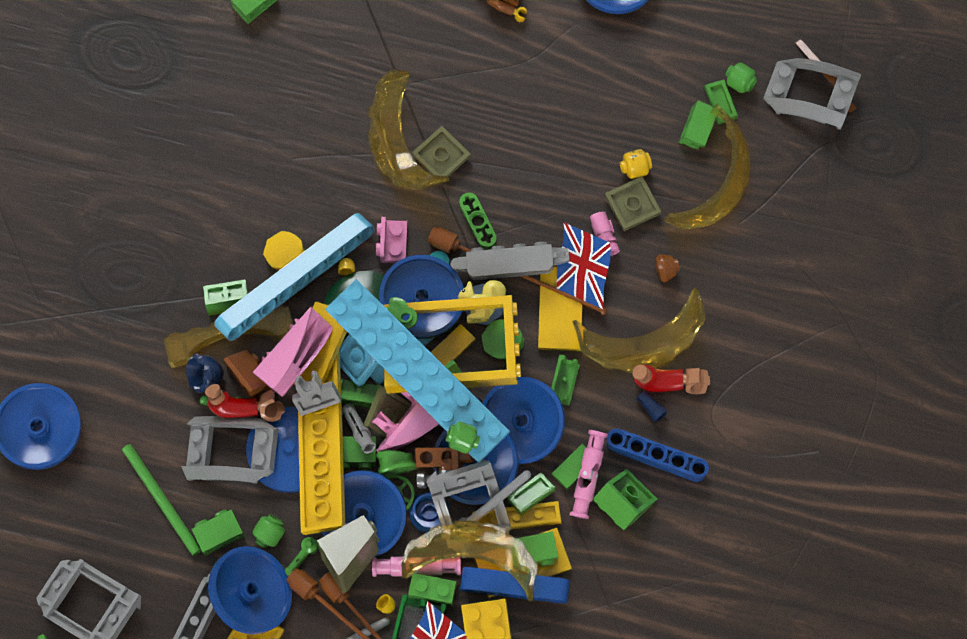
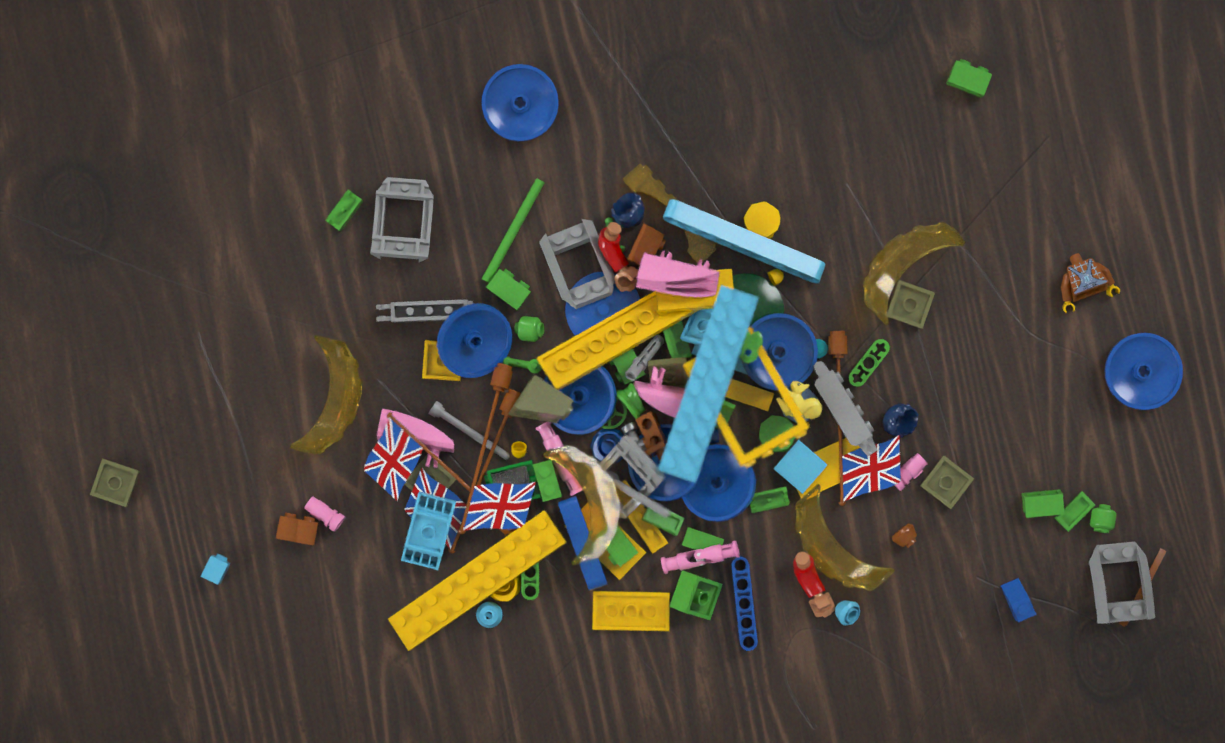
camera: 65 degrees right, 15 degrees up
(223, 296) = (700, 193): hinge -> none
(314, 394) = (651, 310): light grey plate -> none
(392, 240) = (817, 302): bright pink bracket -> none
(462, 437) = (669, 449): bright green head -> none
(546, 333) = (800, 466): none -> medium azure tile
(549, 216) = (900, 420): none -> dark blue hair
(609, 573) = (631, 611): none -> yellow tile
(636, 164) = (982, 468): yellow head -> none
(654, 409) = (781, 583): dark blue pin -> none
(715, 358) = (847, 612): none -> medium azure cone
(730, 191) = (1004, 557): clear yellow windscreen -> none
(783, 192) = (1018, 600): none -> blue slope

